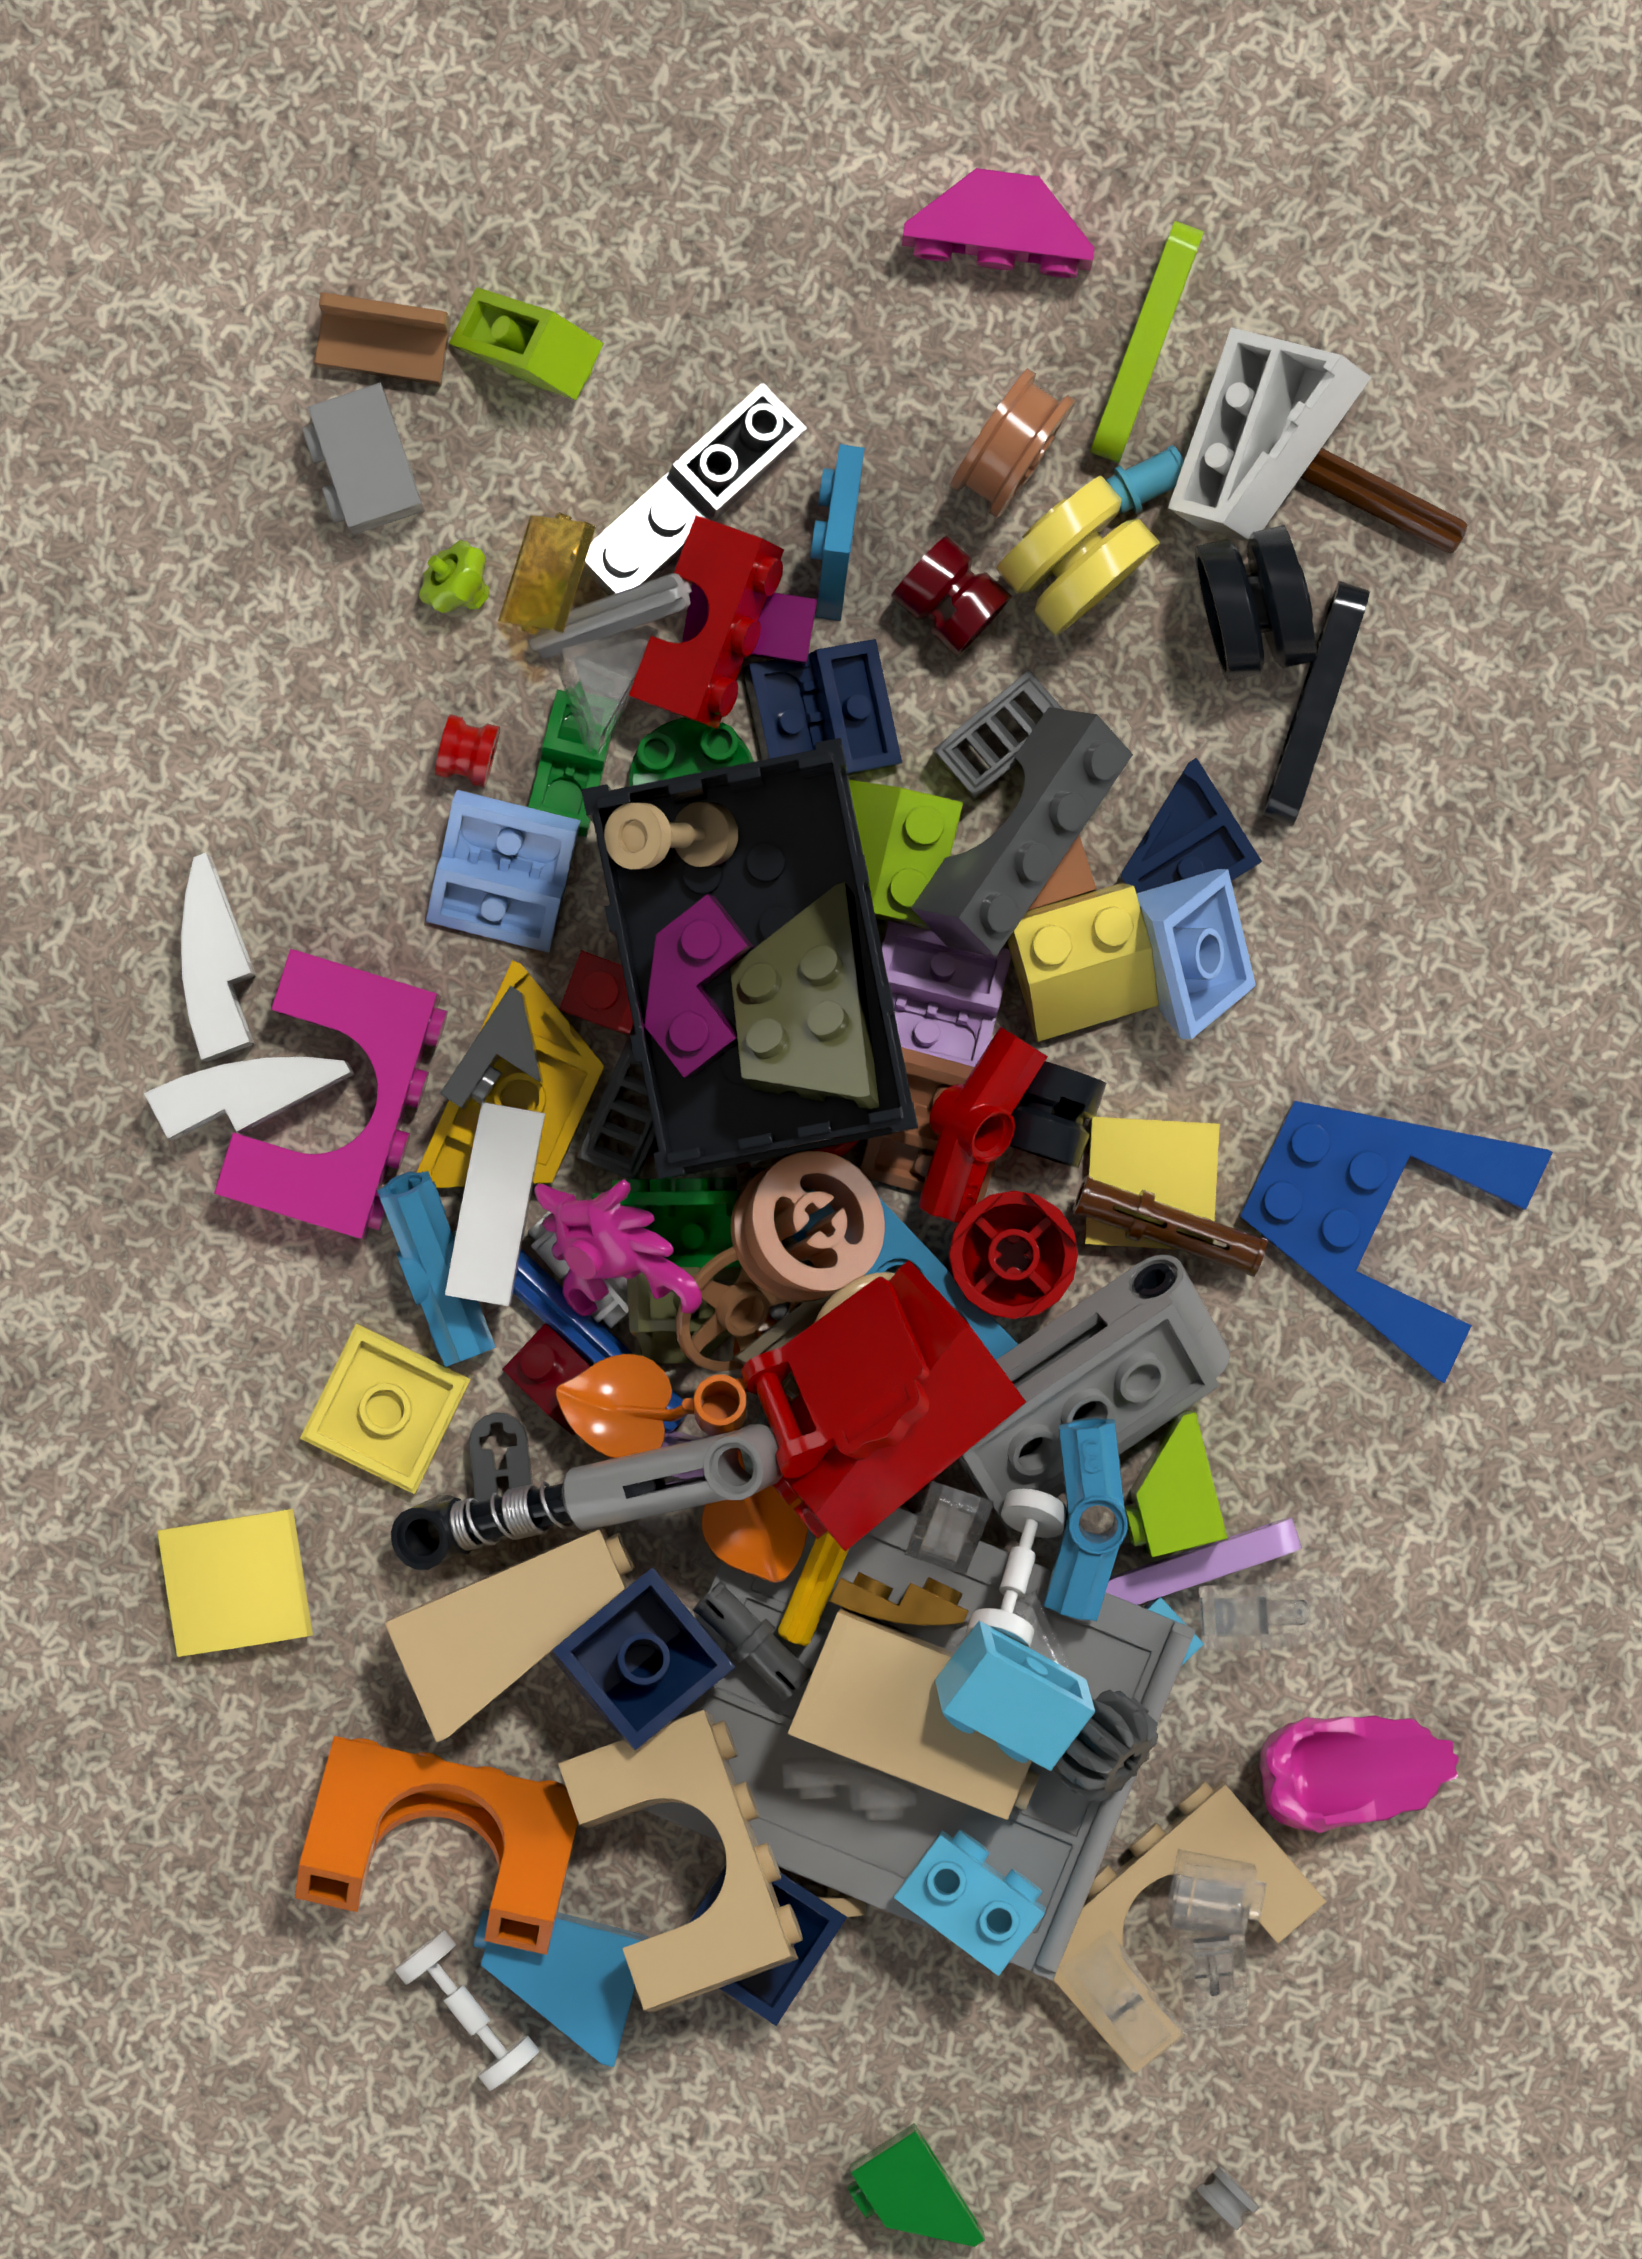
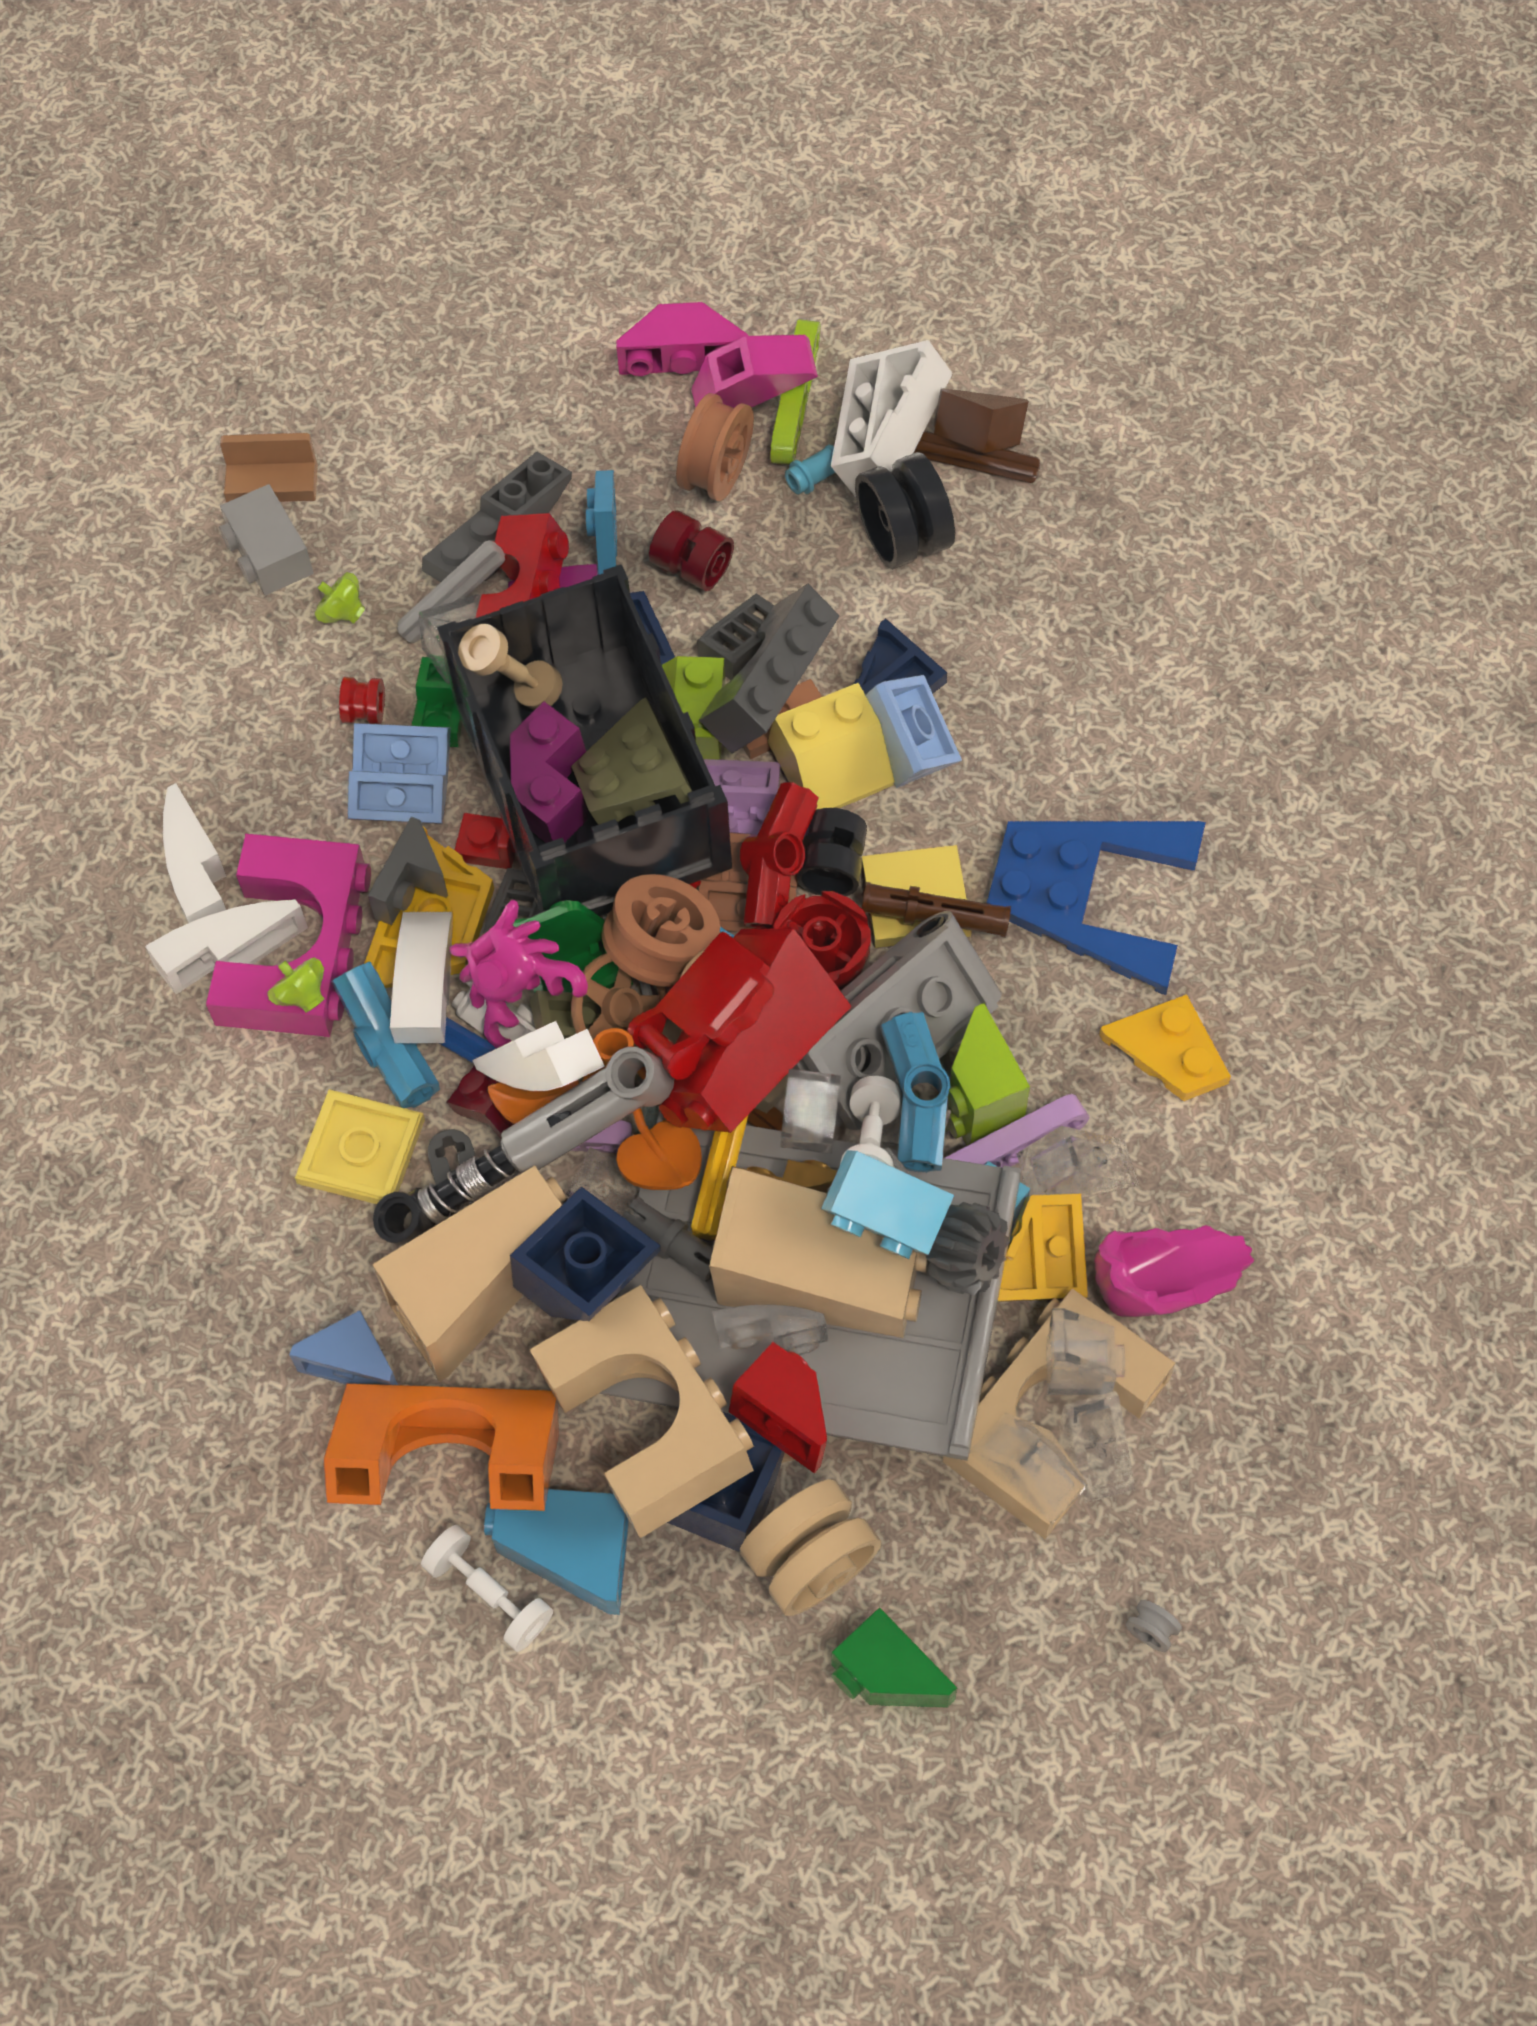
camera: 10 degrees left, 25 degrees down
(235, 1582) = (255, 1291): light yellow slope -> none
(335, 1203) = (299, 985): none -> lime piece
(341, 1692) = (344, 1354): none -> medium blue slope
(527, 342) = (372, 455): lime slope -> none
(547, 573) = (403, 581): clear yellow piece -> none
(626, 1381) = (542, 1059): none -> white slope
(850, 1886) = (783, 1404): none -> red slope
(853, 2056) = (810, 1547): none -> tan wheel
(972, 1900) = (887, 1398): medium azure brick -> none
(1071, 548) = (774, 503): light yellow wheel -> none
(1088, 332) = (755, 369): none -> dark pink slope
(1209, 1719) = (1046, 1250): none -> yellow wing
(1315, 703) = (961, 576): black beam -> none
(1394, 457) = (980, 419): none -> reddish brown slope
(1429, 1463) = (1171, 1046): none -> yellow wing

